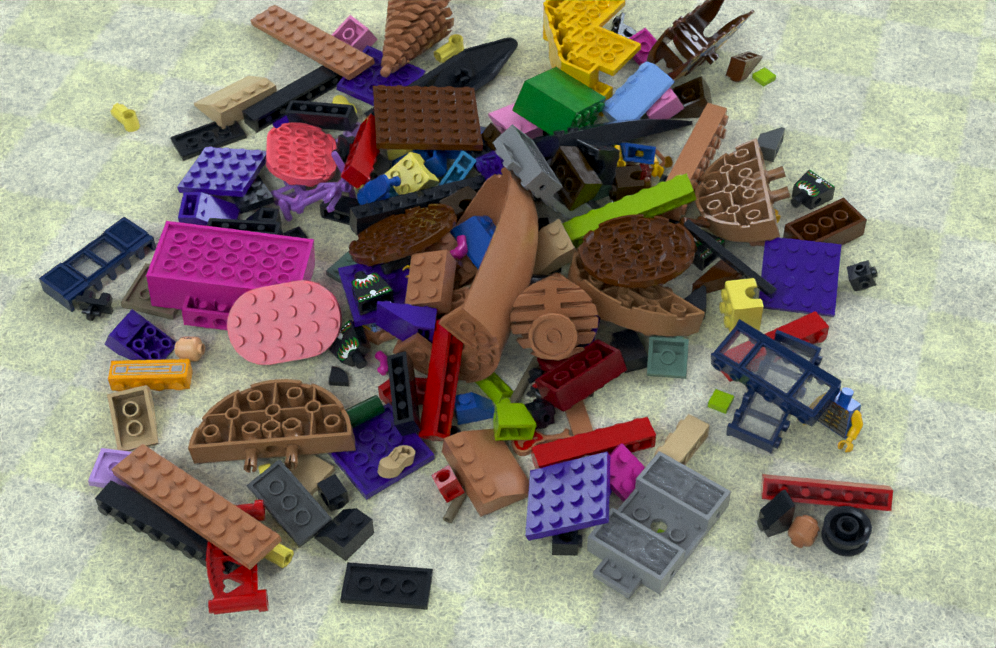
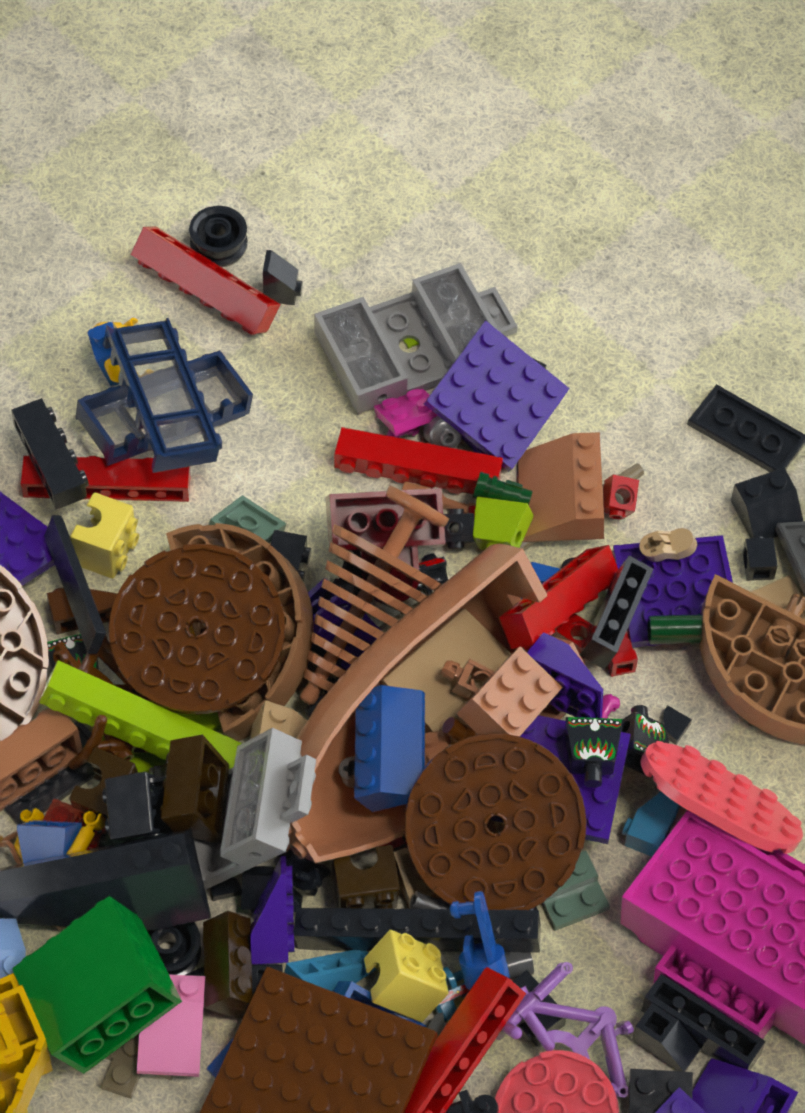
camera: 155 degrees left, 10 degrees up
(295, 232) = (621, 1003): black tile -> none
(461, 250) = (429, 748): dark pink arm -> none
(523, 438) = (496, 489): none -> dark green axle
(685, 439) = (315, 414): tan brick -> none
(720, 401) = (229, 453): lime tile -> none
(803, 531) = (254, 257): nougat head -> none
(812, 324) = (49, 453): none -> black brick

